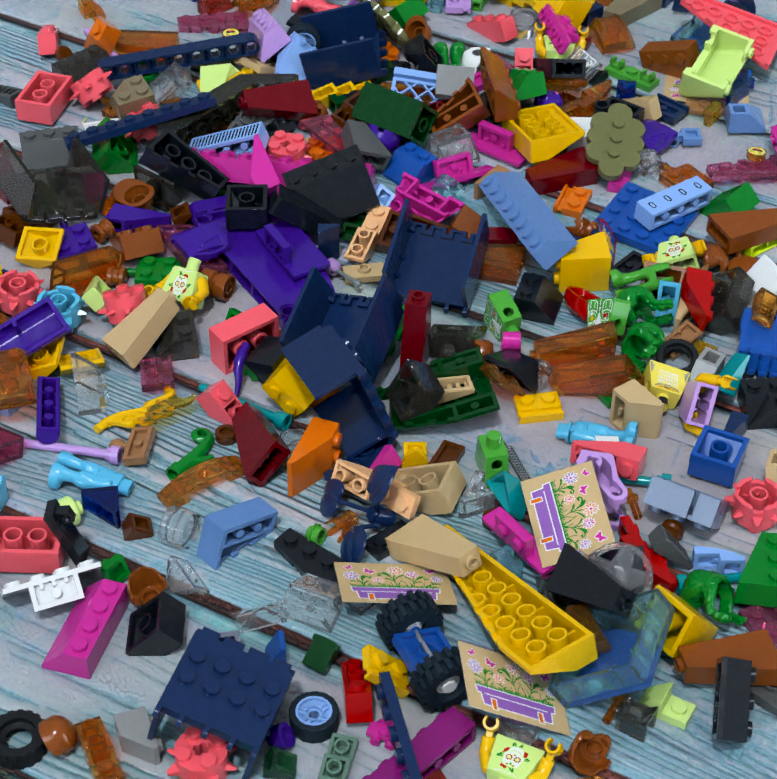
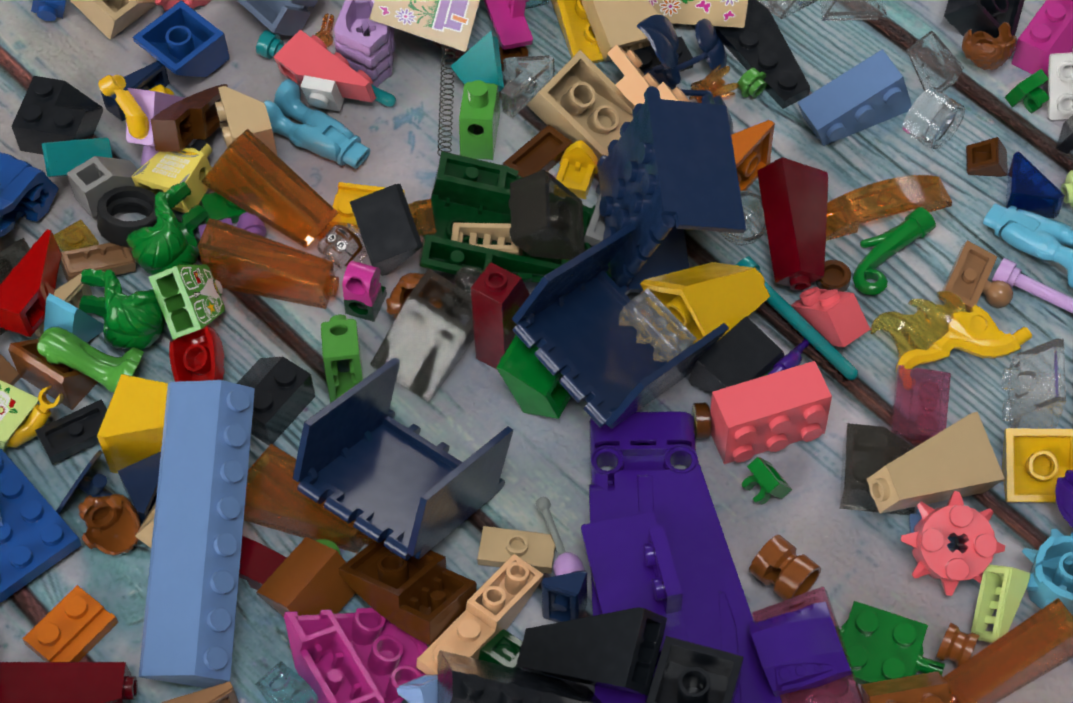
camera: 160 degrees left, 15 degrees up
(186, 284) = (845, 553): torso -> none
(675, 406) = (187, 120): none -> reddish brown slope

